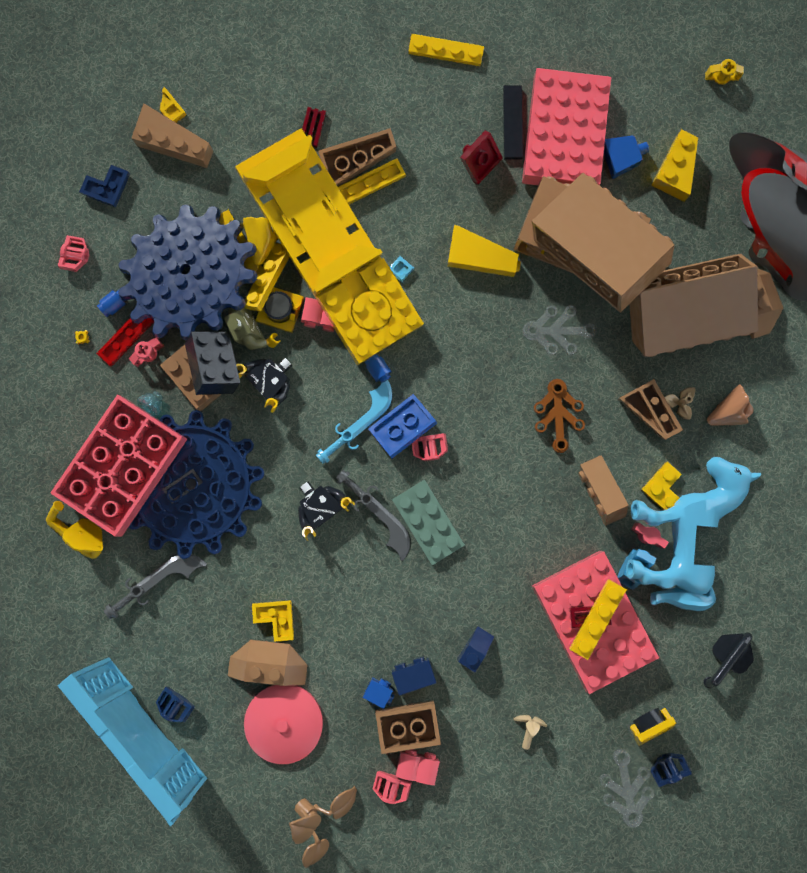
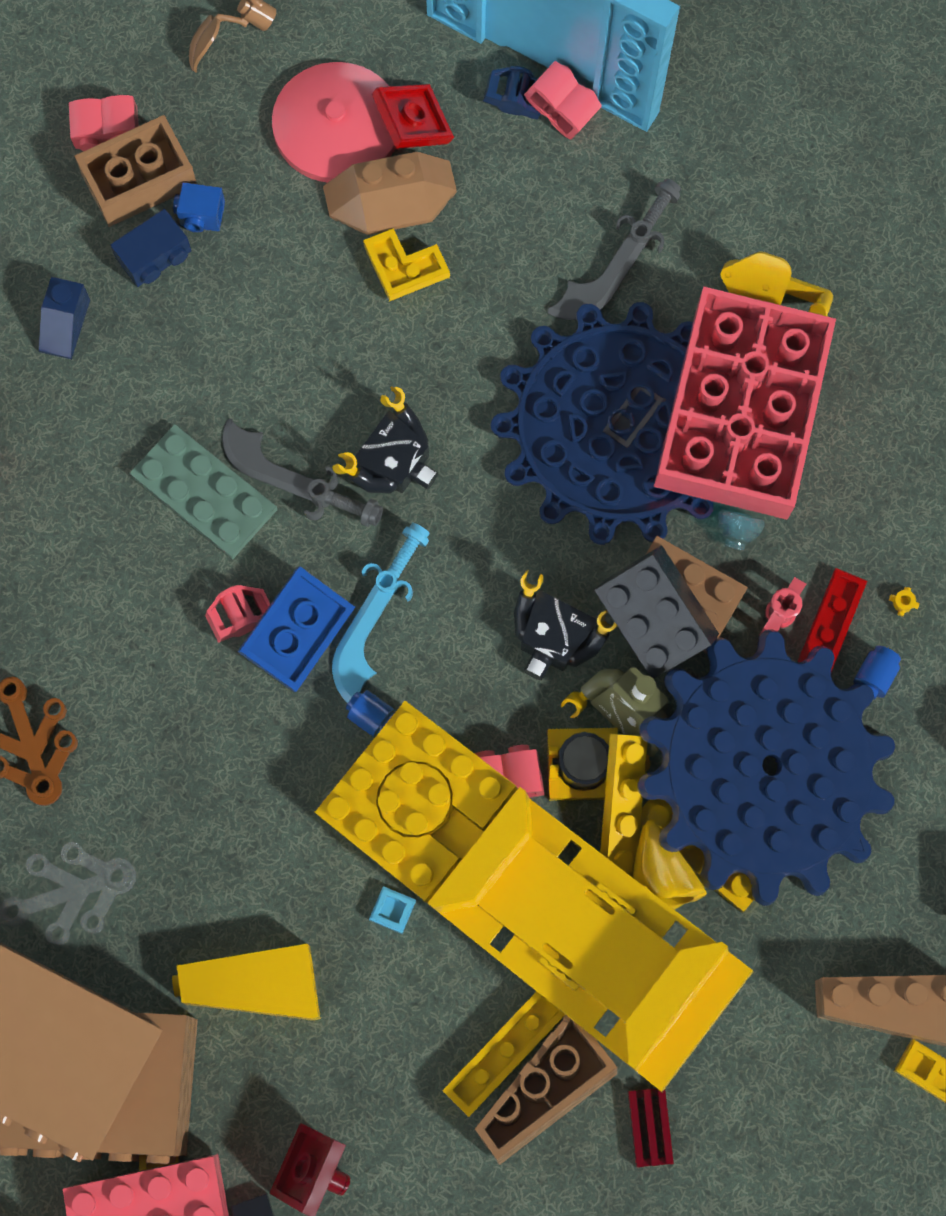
camera: 160 degrees right, 10 degrees down
(148, 689) = (563, 99): none -> coral brick
(238, 709) = (412, 115): none -> red plate
(391, 787) = (137, 81): coral piece -> none

